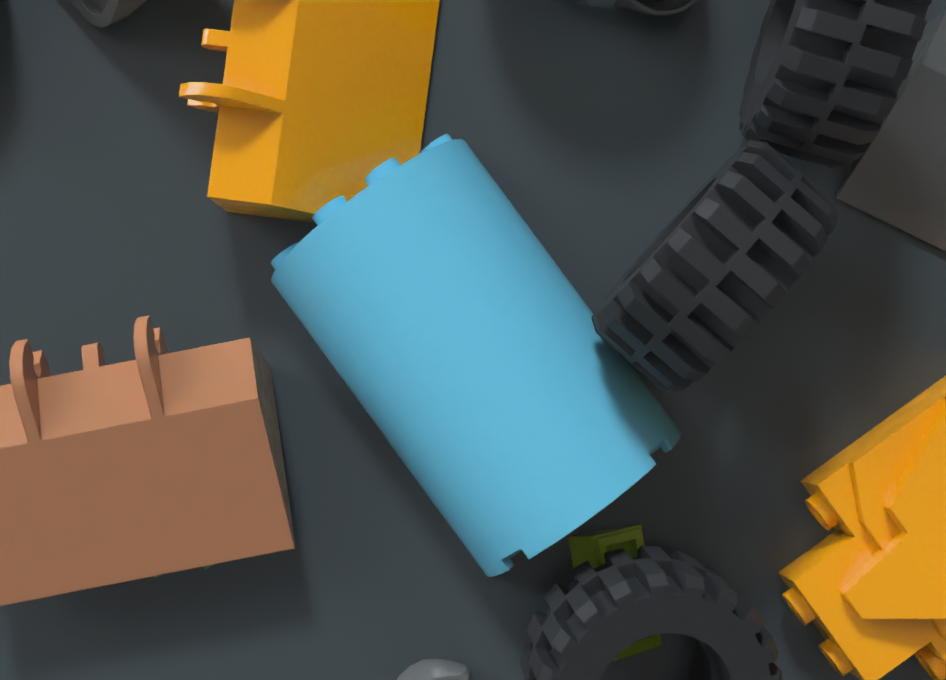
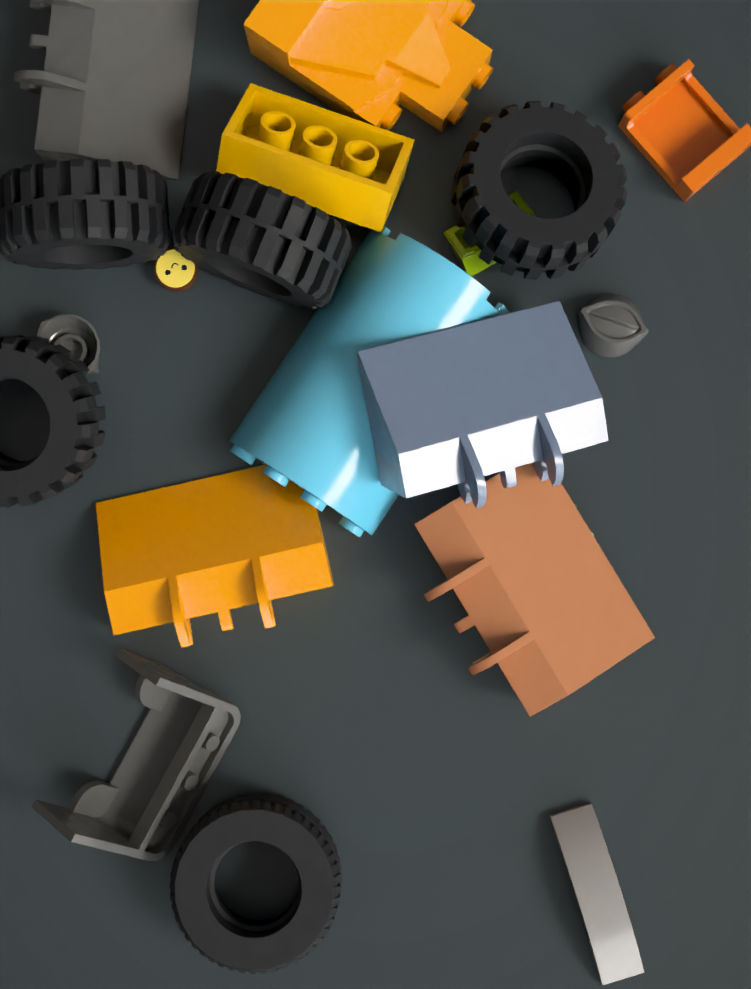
camera: 105 degrees left, 0 degrees up
(375, 488) = (480, 403): none -> sand blue piece
(711, 147) = (175, 271): none -> light yellow tile
(805, 384) = (316, 156): none -> yellow brick

